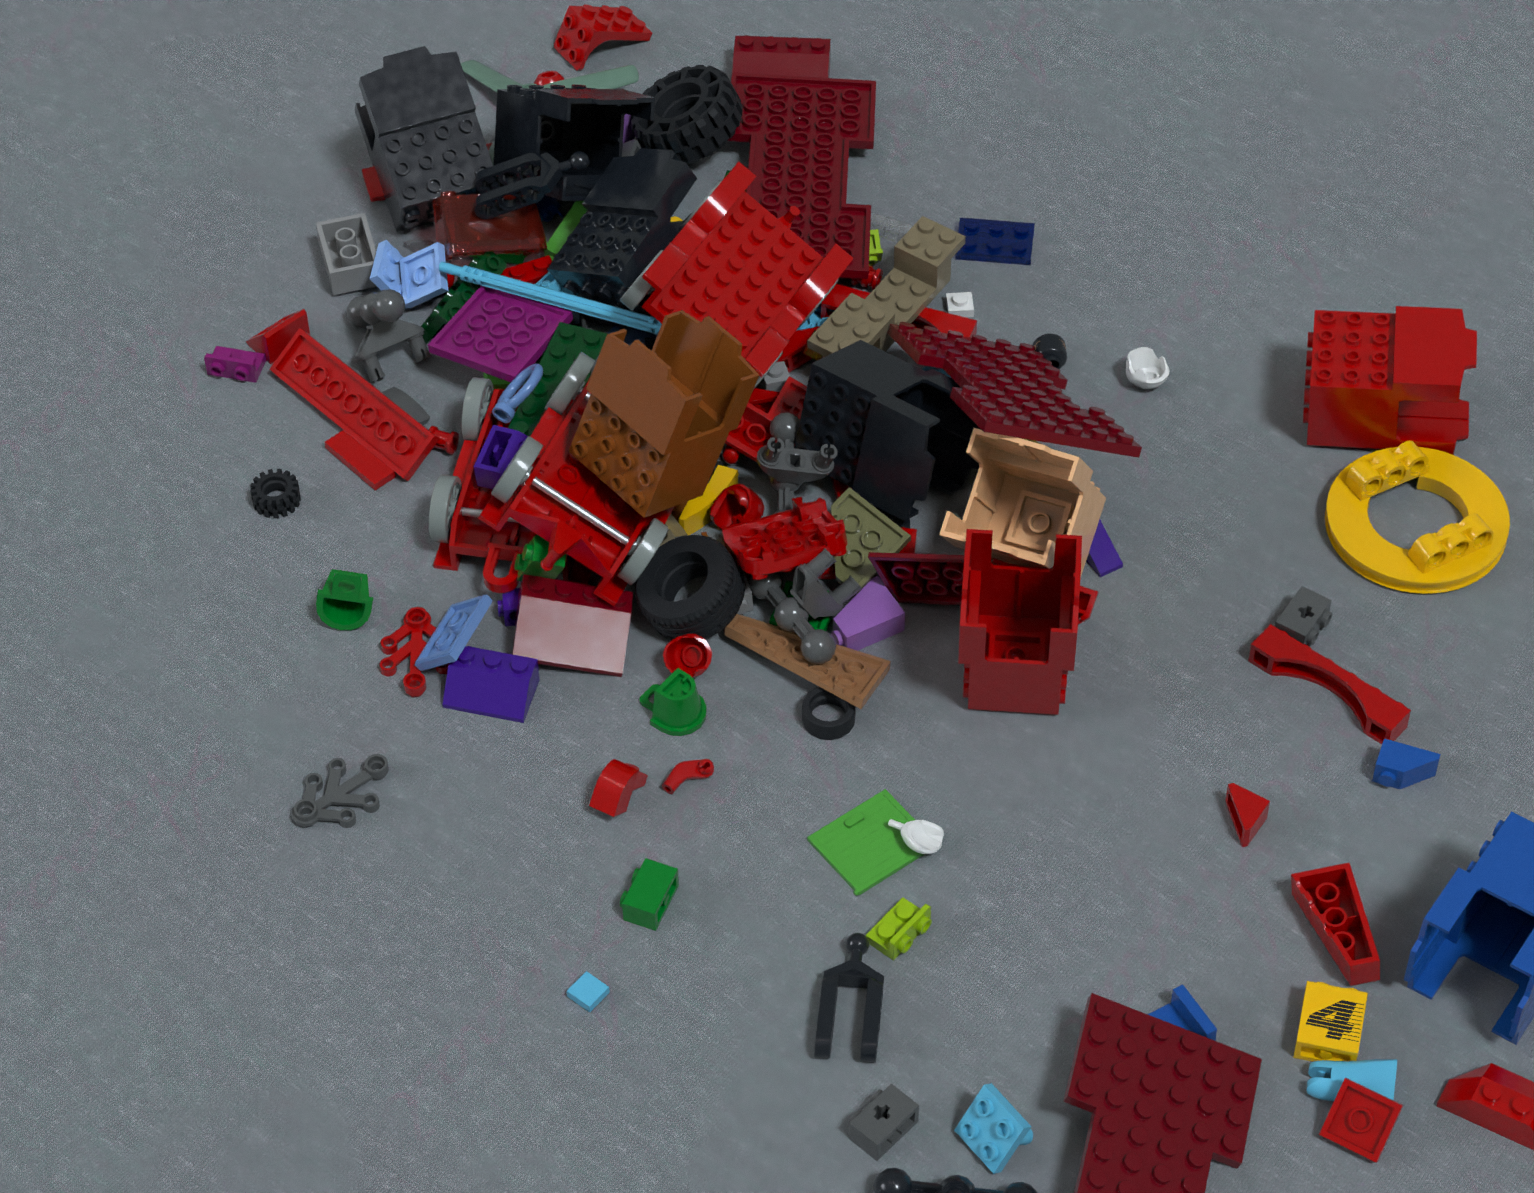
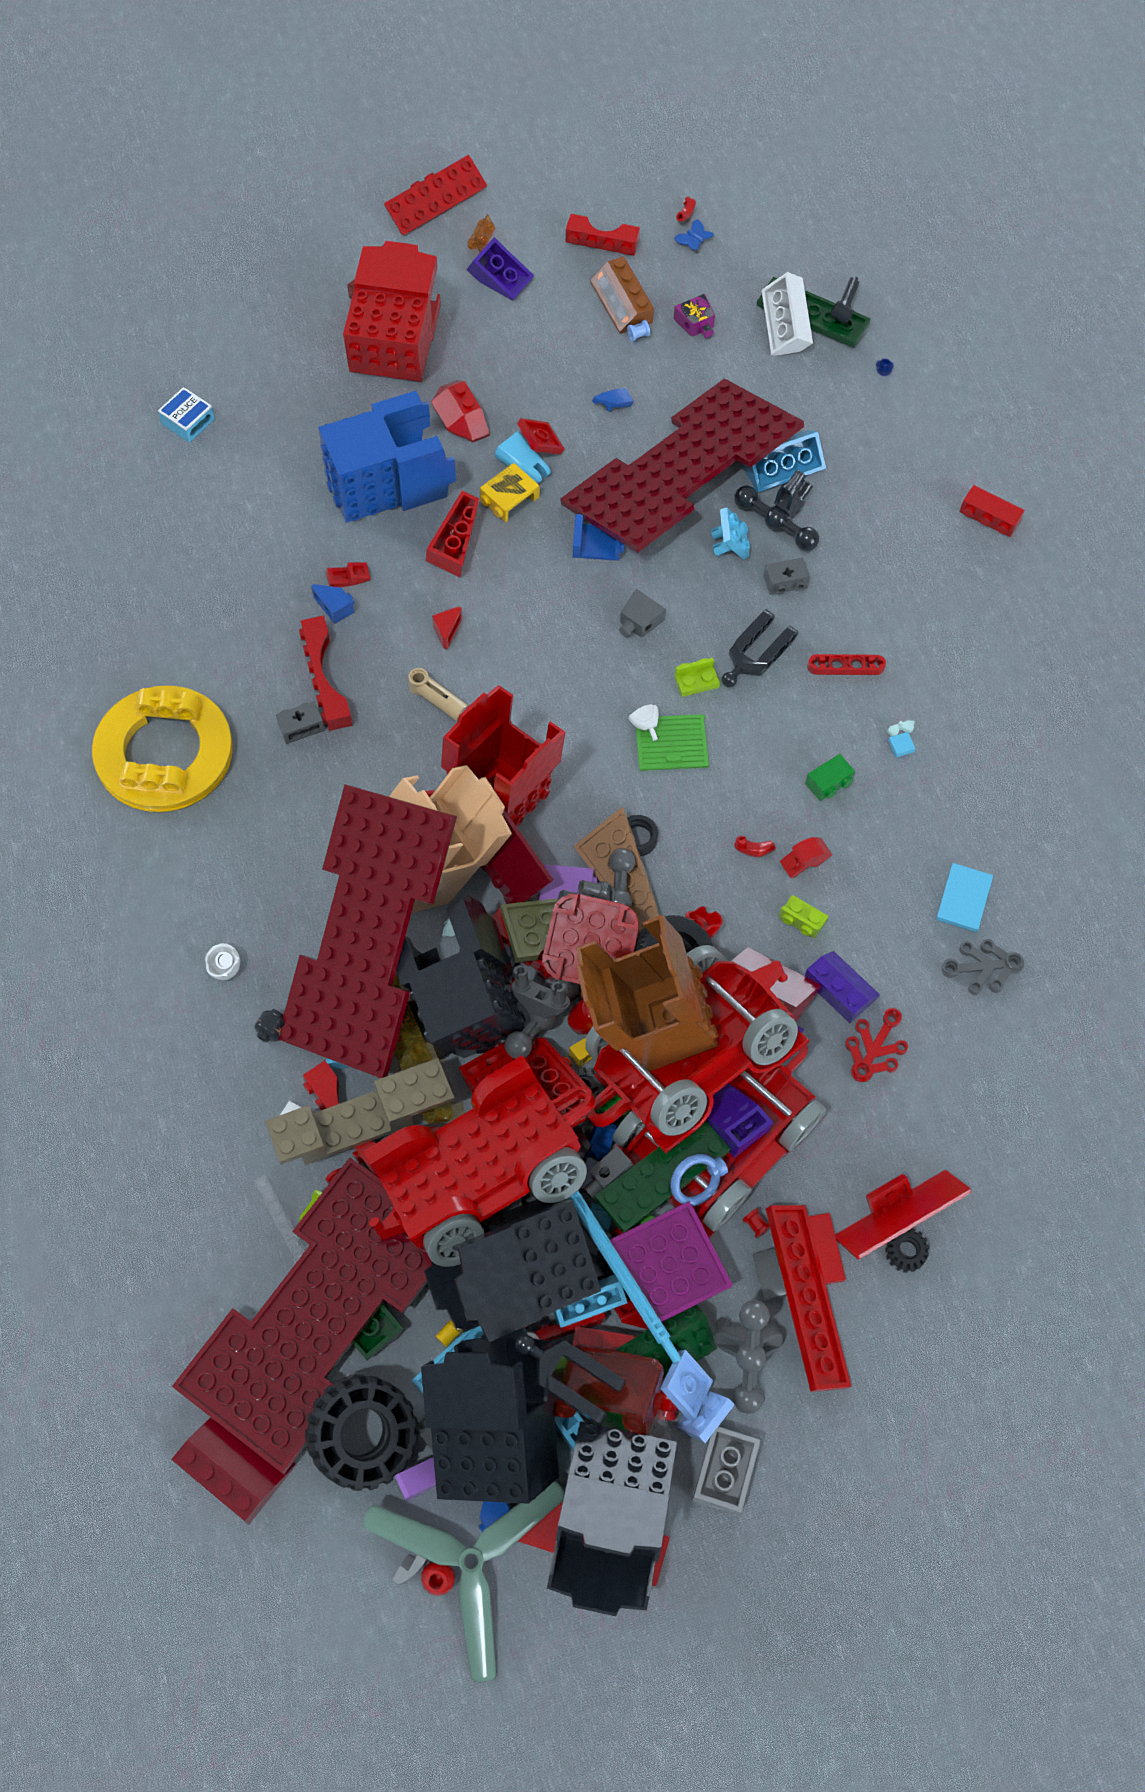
camera: 150 degrees left, 15 degrees up
(235, 364) = (875, 1413): magenta bracket -> none
(277, 336) = (826, 1421): red slope -> none
(298, 512) = (899, 1208): none -> red bracket
(344, 600) = (906, 1109): green container -> none
(403, 855) = (964, 897): none -> medium azure tile
(453, 632) = (850, 1026): medium blue tile -> none
(580, 730) = (803, 916): none -> lime bracket
(590, 26) = (346, 1625): red bracket -> none
(609, 1008) = (906, 726): none -> light aqua piece
(676, 705) = (730, 896): green container -> none
(727, 1058) = (847, 668): none -> red beam
(996, 241) = (216, 1162): clear blue plate -> none
(1029, 961) = (640, 615): none -> dark grey torso
(1210, 733) = (435, 693): none -> tan piece
(1388, 378) = (92, 822): red piece -> none
(1422, 812) = (347, 576): none -> red slope

